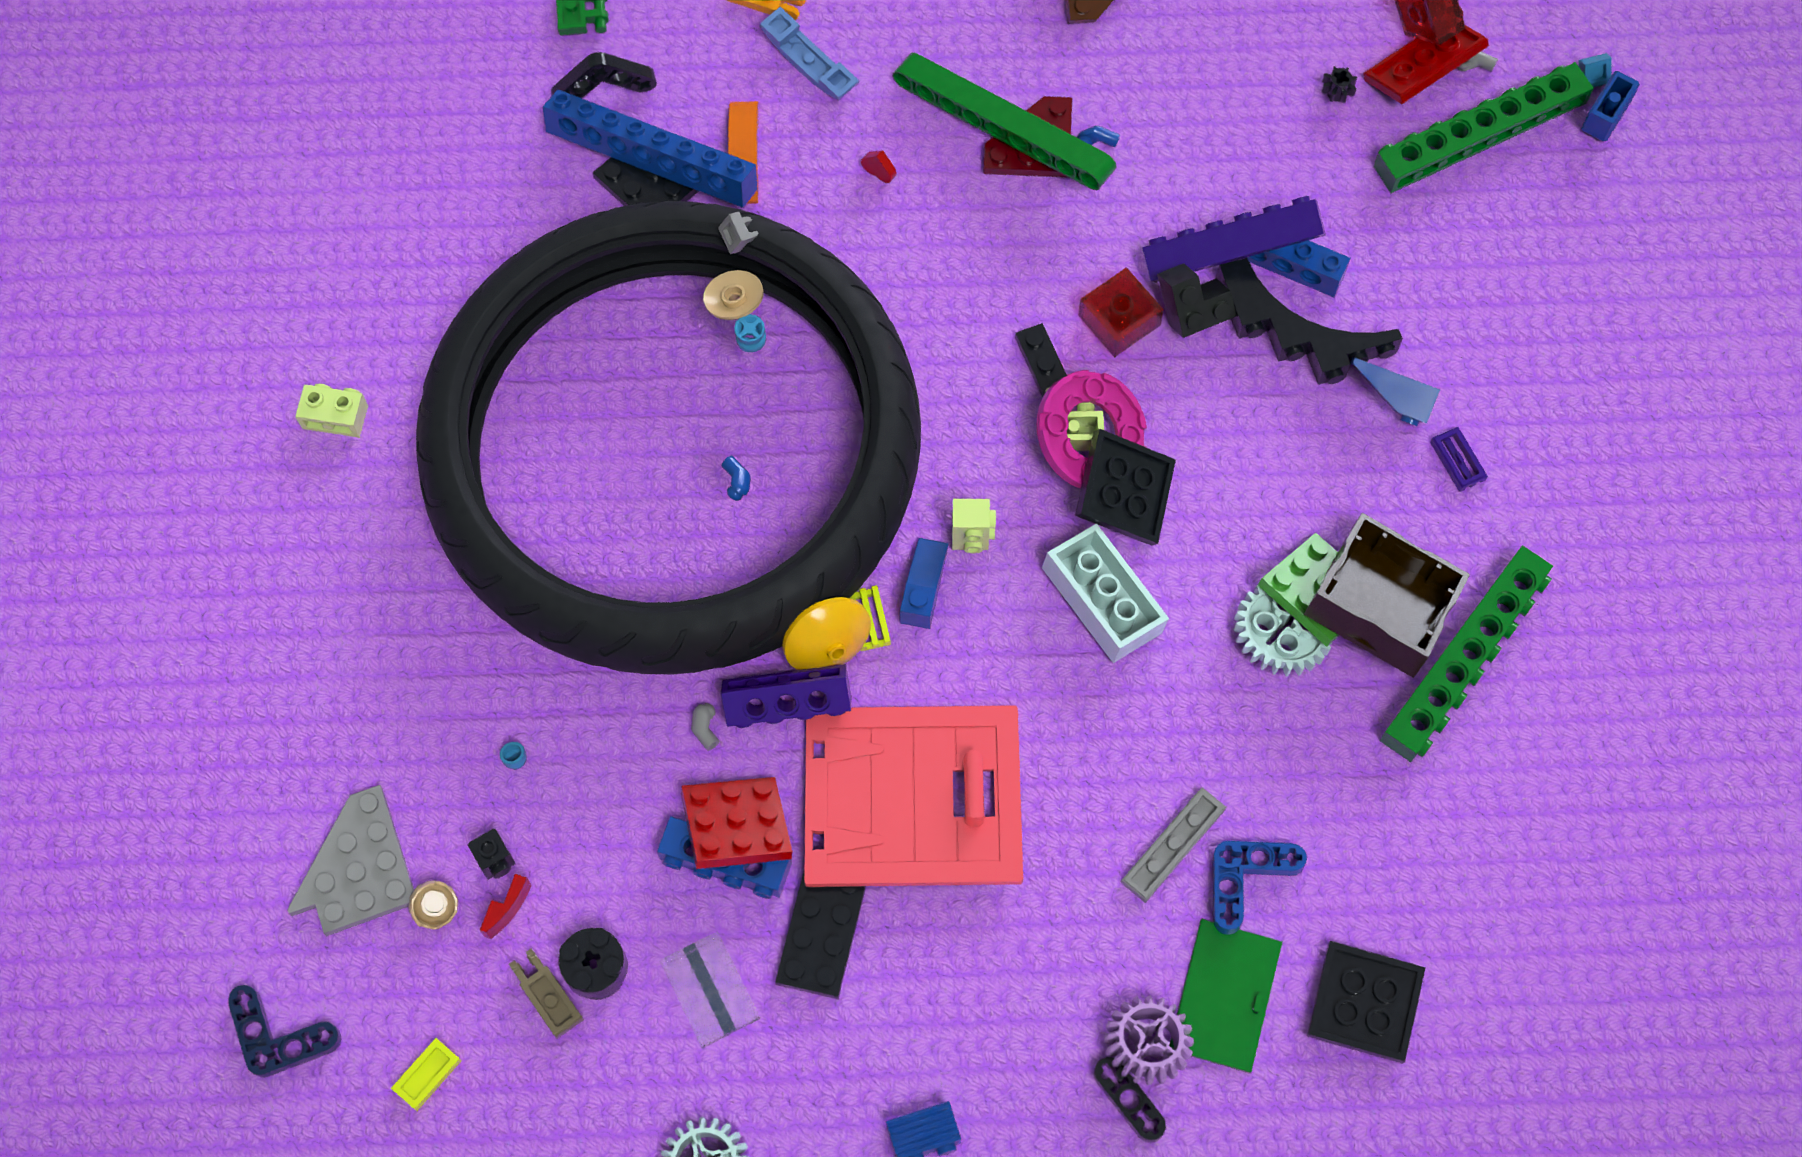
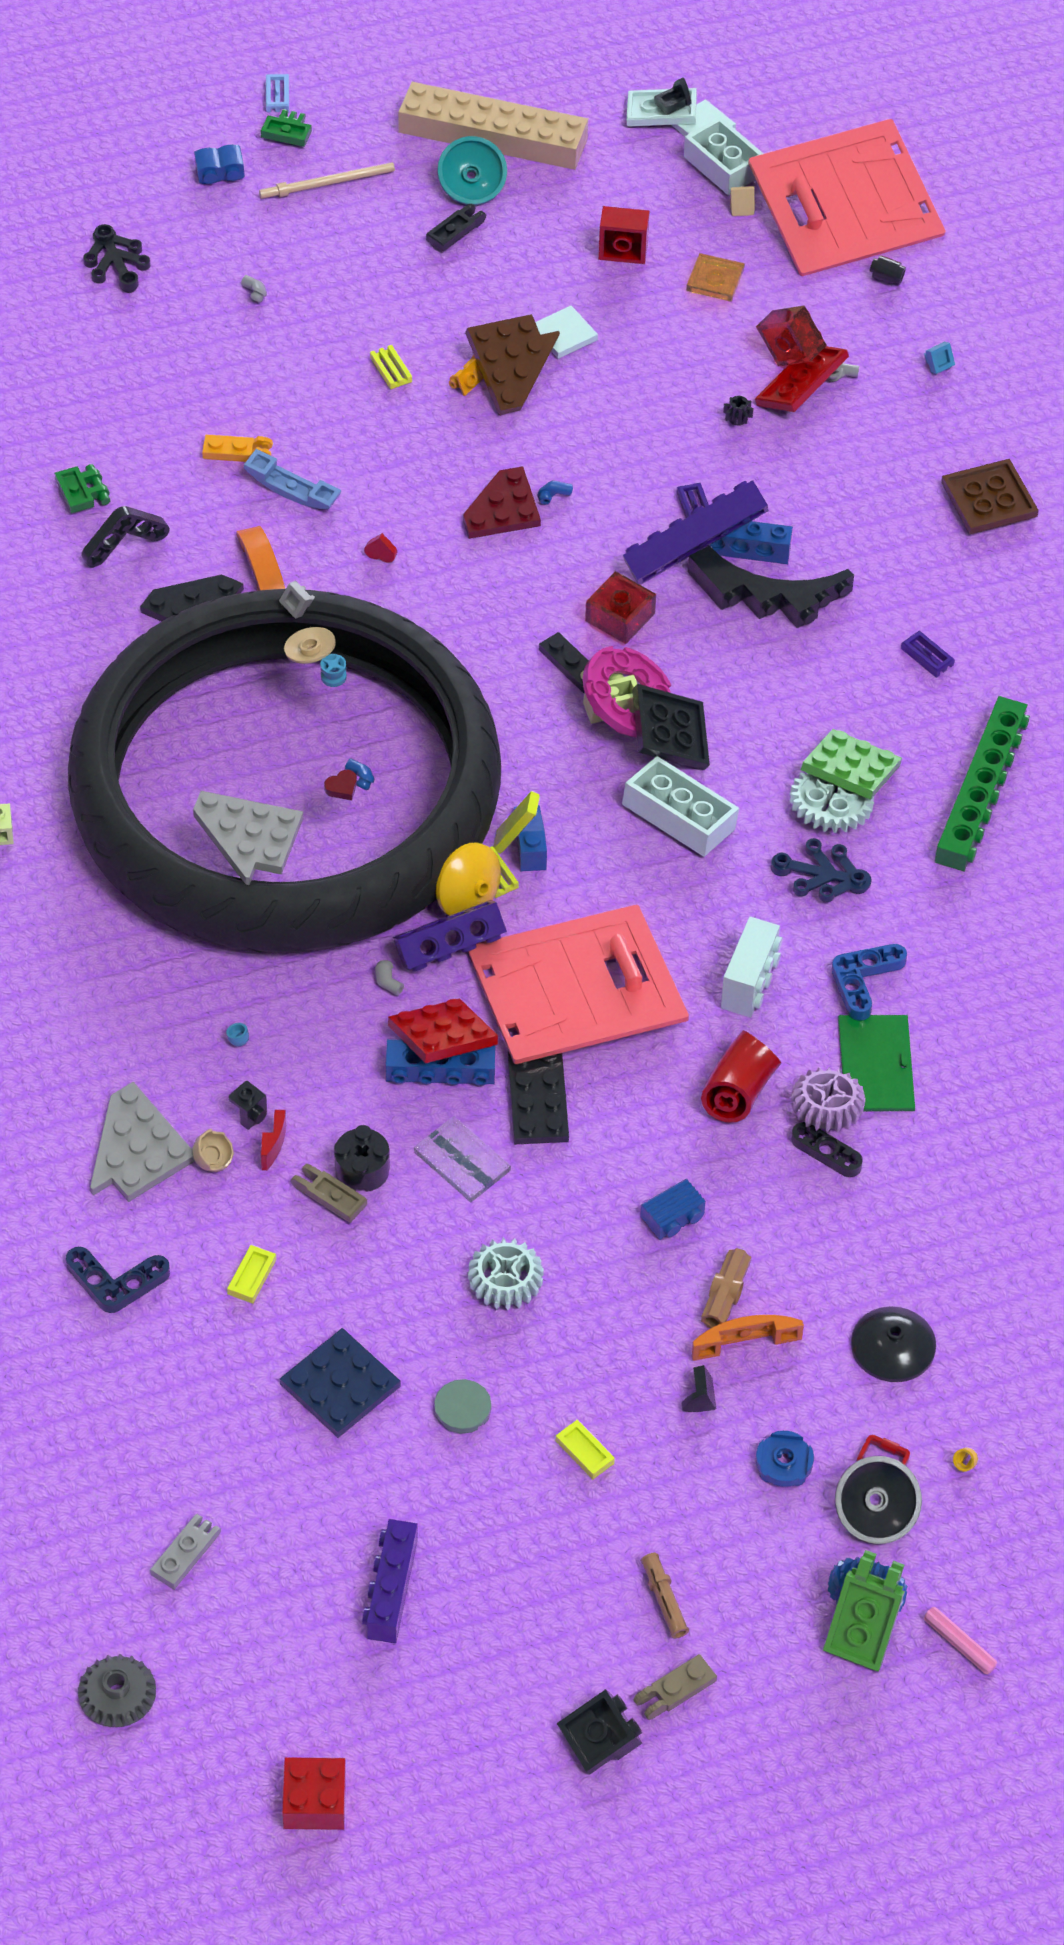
camera: 20 degrees left, 15 degrees down
(585, 523) = (248, 832): none -> light grey wing
(650, 148) = (183, 571): blue brick -> none
(710, 487) = (342, 785): none -> dark red tile
(906, 571) = (516, 822): none -> neon yellow tile
(972, 525) = (556, 781): yellowish green brick -> none
(1005, 121) = (474, 491): green beam -> none
(1055, 981) = (738, 1078): none -> red brick
(1116, 835) = (751, 967): none -> light aqua brick
(1173, 845) = (798, 970): light grey tile -> none
(1191, 304) = (677, 588): pearl dark grey brick -> none
(1246, 723) = (824, 872): none -> dark blue plant
(1251, 171) = (683, 500): none -> dark purple tile
(1366, 1002) = (987, 1037): black plate -> none
(1387, 595) = (905, 750): dark brown tile -> none
(1401, 393) = (866, 613): slope -> none
(1572, 93) = (864, 416): green brick -> none
(1597, 268) = (989, 496): none -> reddish brown plate
(1610, 106) = (960, 378): blue brick -> none

